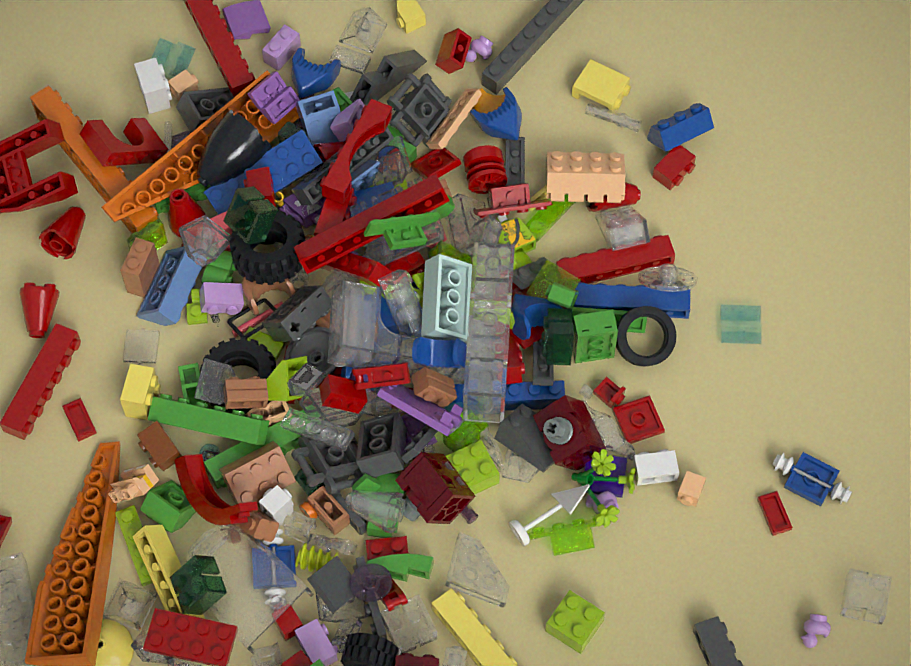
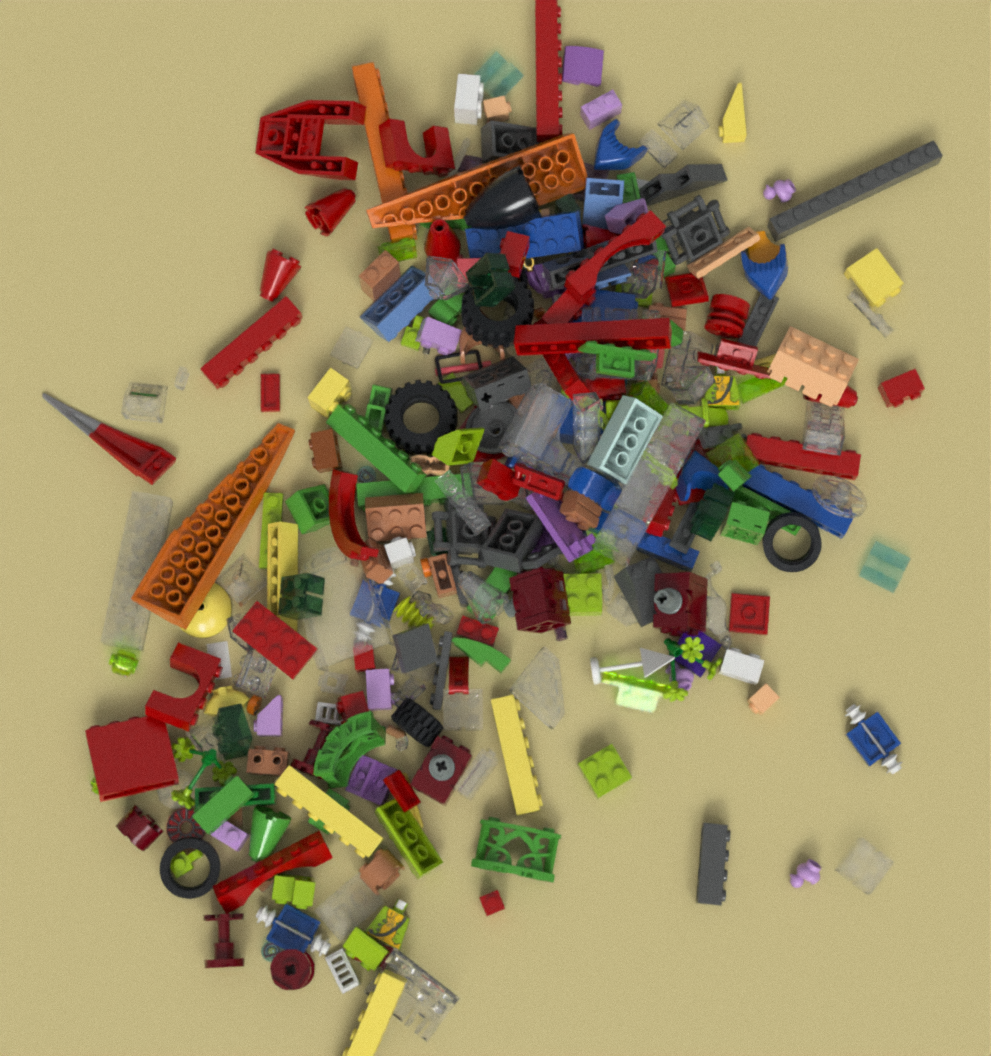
camera: 25 degrees right, 15 degrees up
(135, 483) = (287, 478): light nougat hips -> none
(212, 381) = (395, 419): clear slope -> none
(245, 393) = (415, 442): nougat brick -> none
(273, 97) = (568, 162): medium lavender slope -> none
(305, 380) = (473, 452): slope -> none
(367, 483) = (483, 570): bright green tile -> none
(371, 575) = (446, 652): clear purple dish -> none
(453, 51) = (755, 183): red brick -> none
(609, 392) = (735, 578): red bracket -> none
(681, 127) = (925, 355): blue slope -> none
(774, 513) = (825, 753): red tile -> none

